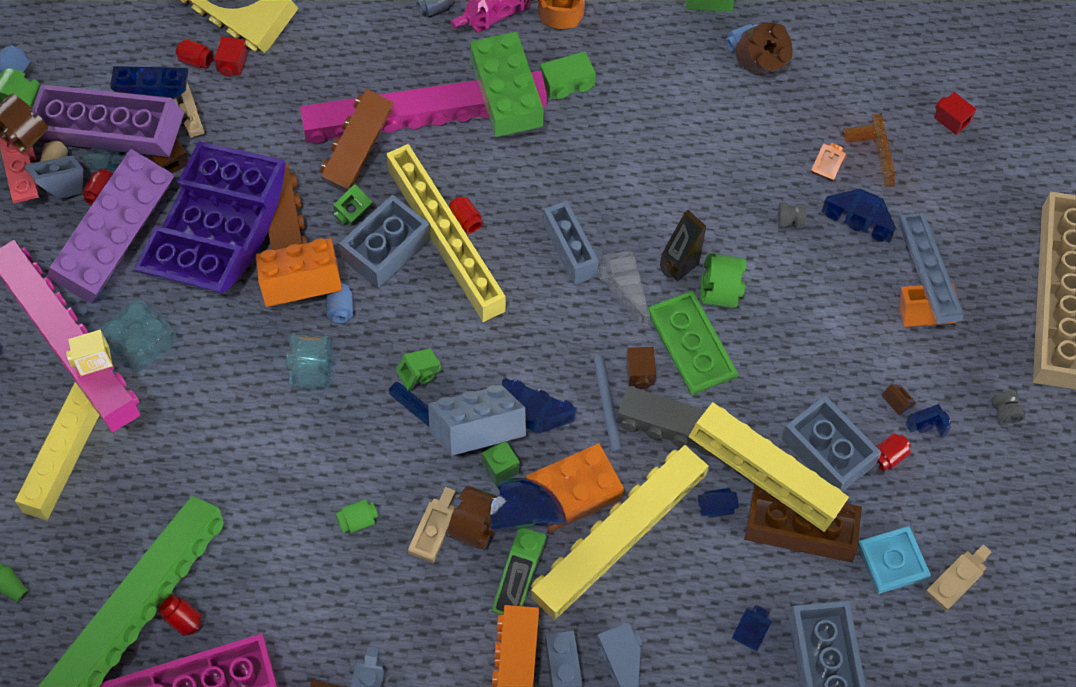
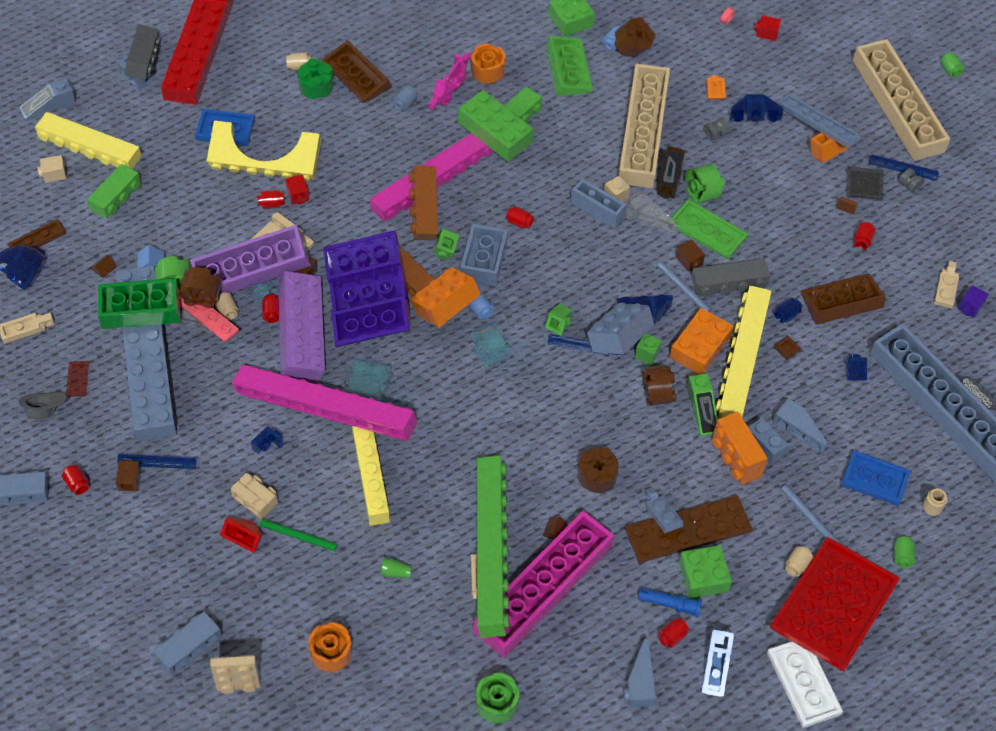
camera: 30 degrees left, 5 degrees down
(58, 176) = (243, 311): sand blue slope -> none
(89, 353) = (364, 397): light yellow brick -> none
(149, 81) = (266, 223): clear blue slope -> none
(180, 615) = (520, 529): red brick -> none
(227, 633) = (554, 527): none -> reddish brown slope
(336, 600) = (598, 470): none -> reddish brown brick
(356, 516) = (583, 422): bright green brick -> none
(433, 527) = (634, 405): tan hinge -> none
(446, 233) = (520, 233): light yellow brick -> none
(524, 504) = (687, 360): clear blue brick -> none
(605, 237) = (618, 188): none -> tan brick
(663, 49) = (568, 66): none -> bright green slope
(684, 552) = (787, 347): none -> reddish brown tile
(699, 167) = (644, 125): none -> tan brick
(768, 466) = (807, 273): light yellow brick -> none
(831, 444) = (830, 246): sand blue brick -> none
(878, 133) = (732, 58): clear orange piece -> none
(893, 559) = (906, 293): medium azure plate -> none
(911, 73) = (727, 15): none -> coral tile
(928, 418) = (875, 205): clear blue bracket -> none
(942, 381) = (864, 183): none -> clear smoke tile
(977, 618) = (973, 301): none -> dark purple brick
(1009, 382) = (902, 167): none -> clear blue axle

